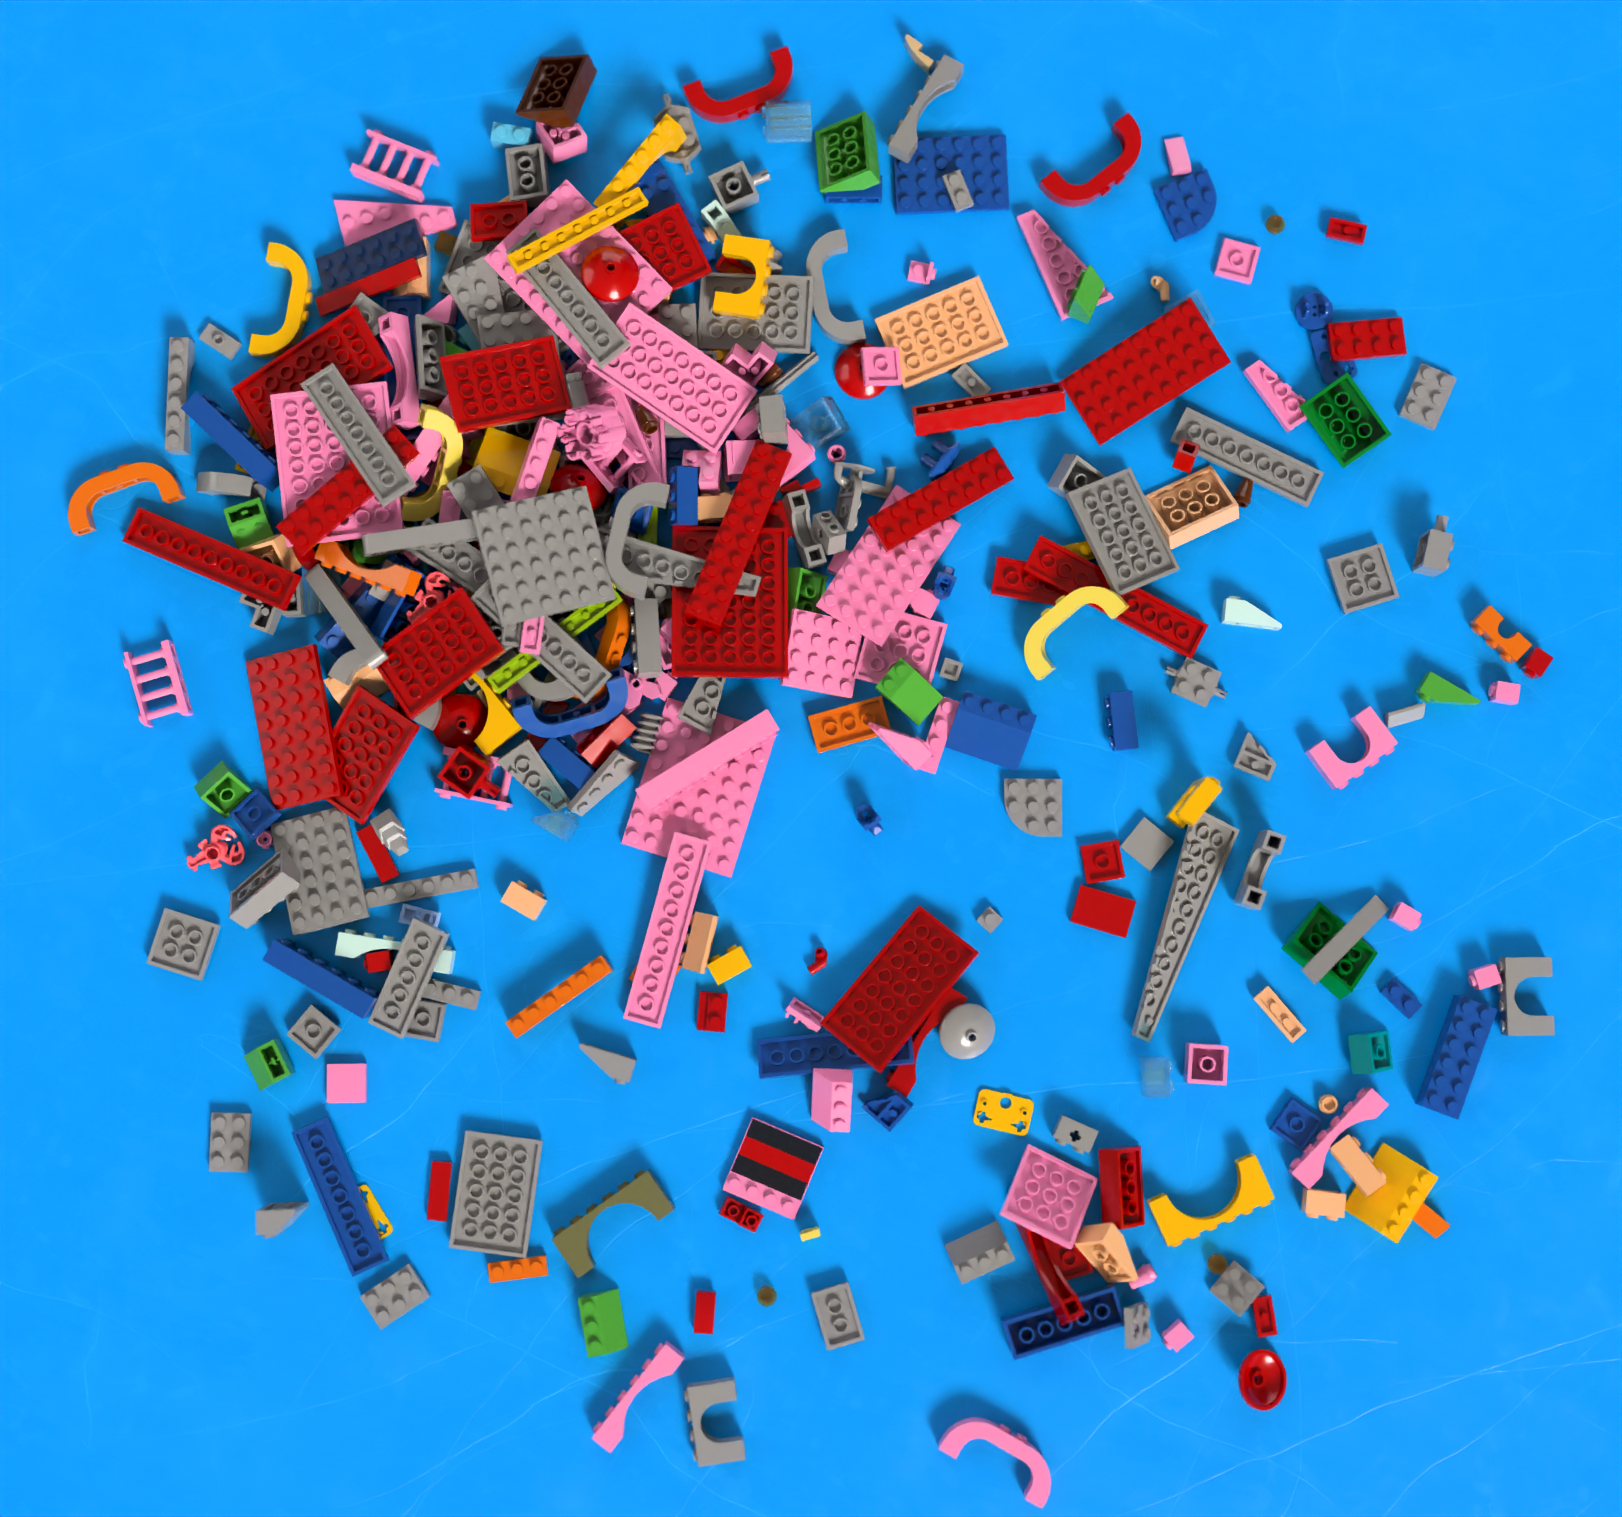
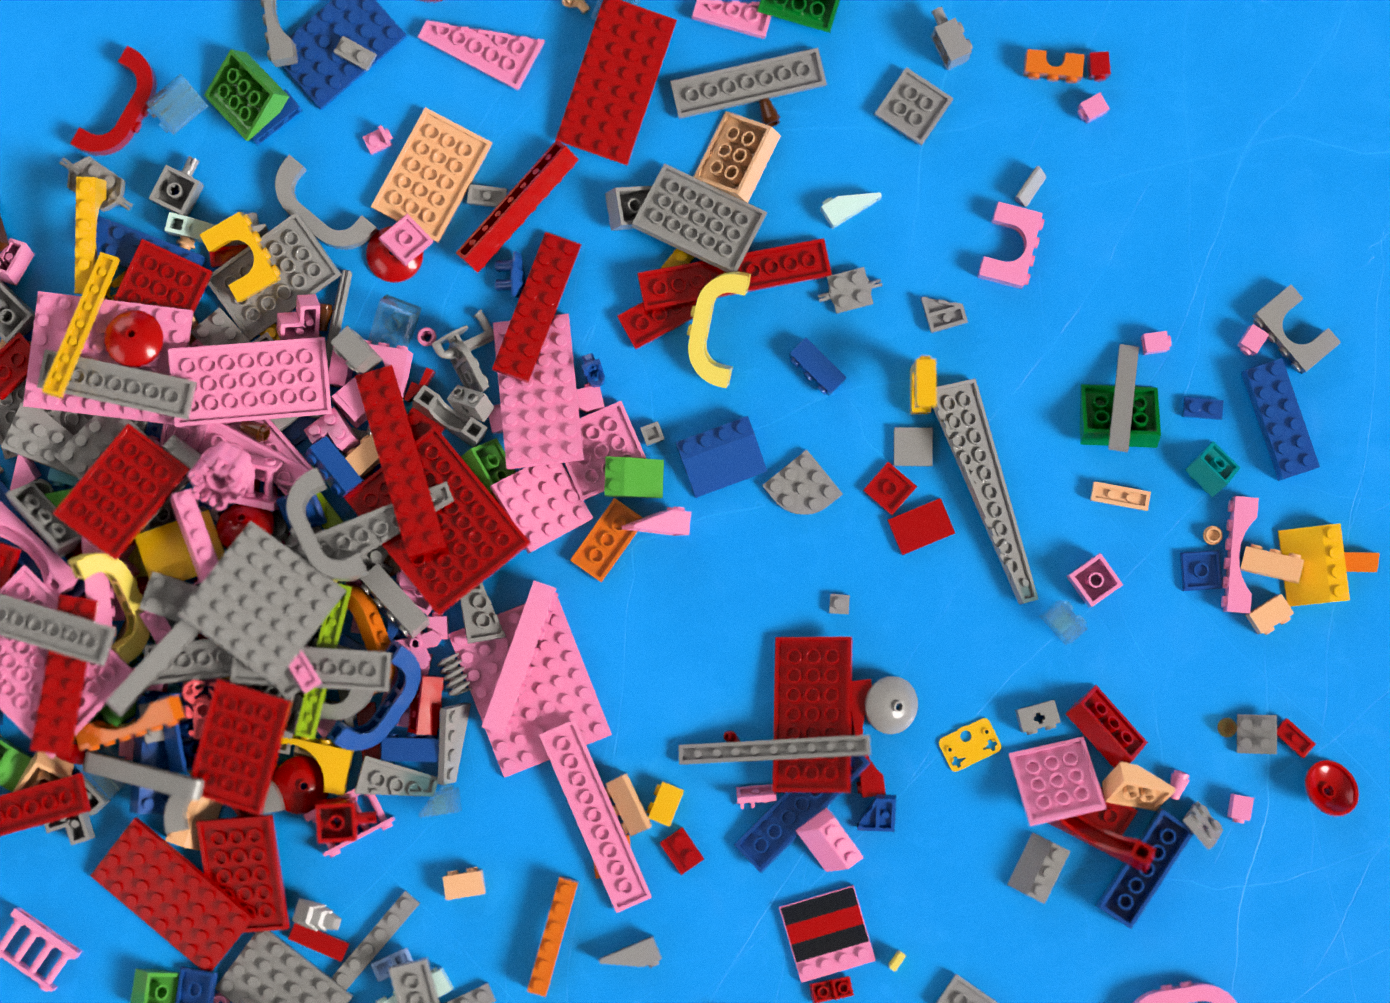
camera: 40 degrees left, 0 degrees up
(848, 992) = (775, 749): none -> light grey plate
(870, 821) = (685, 602): blue hips -> none
(939, 733) = (683, 490): bright pink plate -> none
(1085, 295) = (521, 57): bright green slope -> none
(1186, 456) = (700, 120): red brick -> none
(1250, 889) = (1021, 419): light grey arch -> none
(1250, 1192) = (1208, 651): yellow arch -> none
(1438, 690) = (1042, 146): bright green slope -> none

